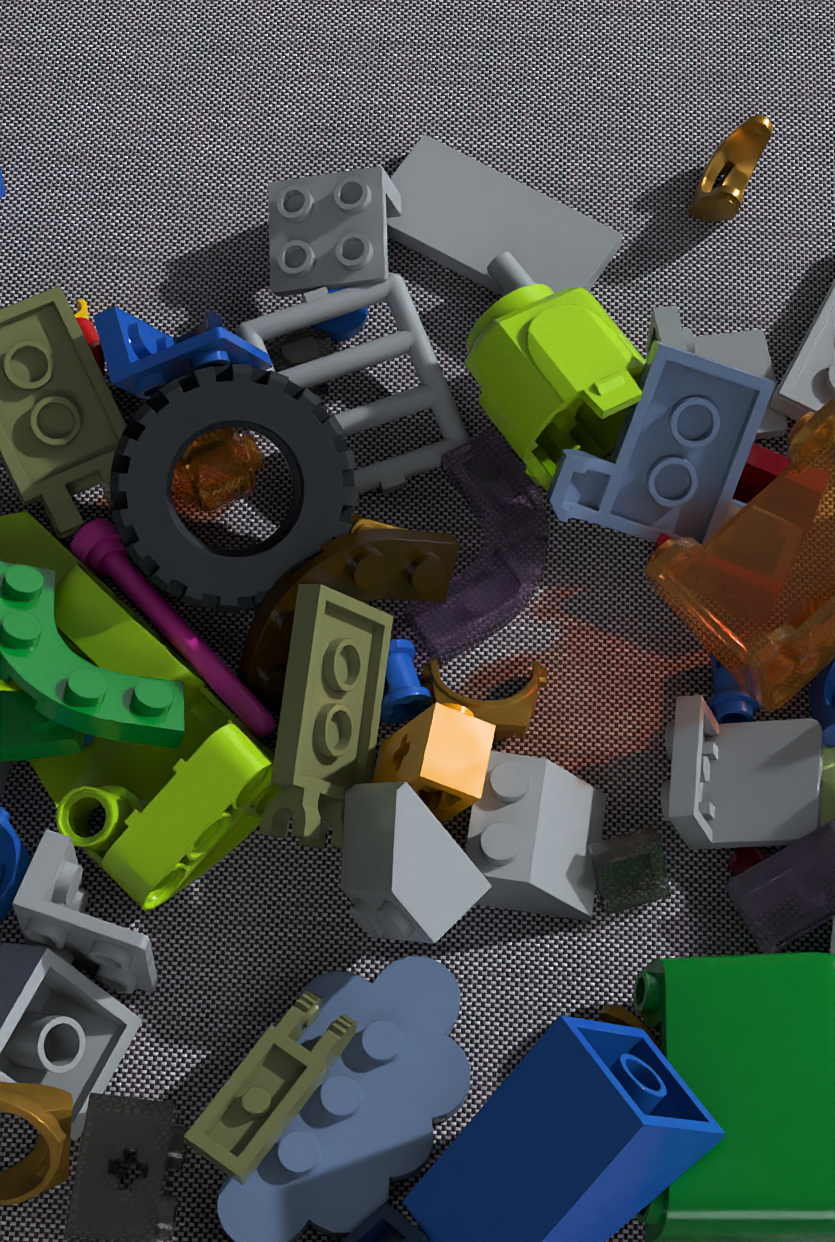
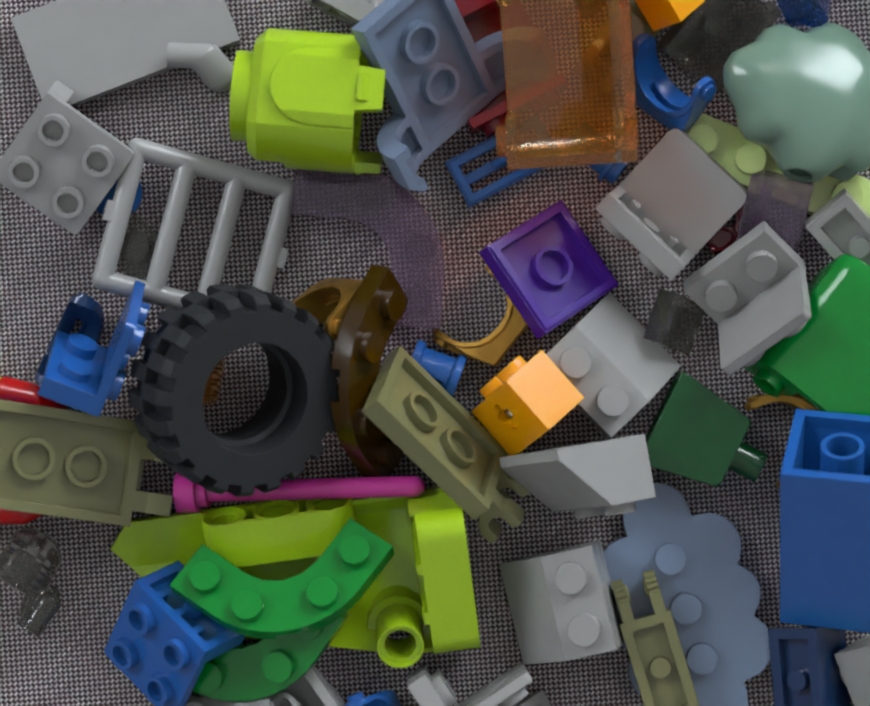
camera: 55 degrees left, 25 degrees up
(255, 961) = (562, 604): none -> light grey slope
(529, 968) = (700, 436): none -> dark green torso
(581, 711) = (548, 269): none -> dark purple tile
(636, 618) = (463, 182): none -> blue tile
(726, 904) = (753, 294): none -> light grey bracket

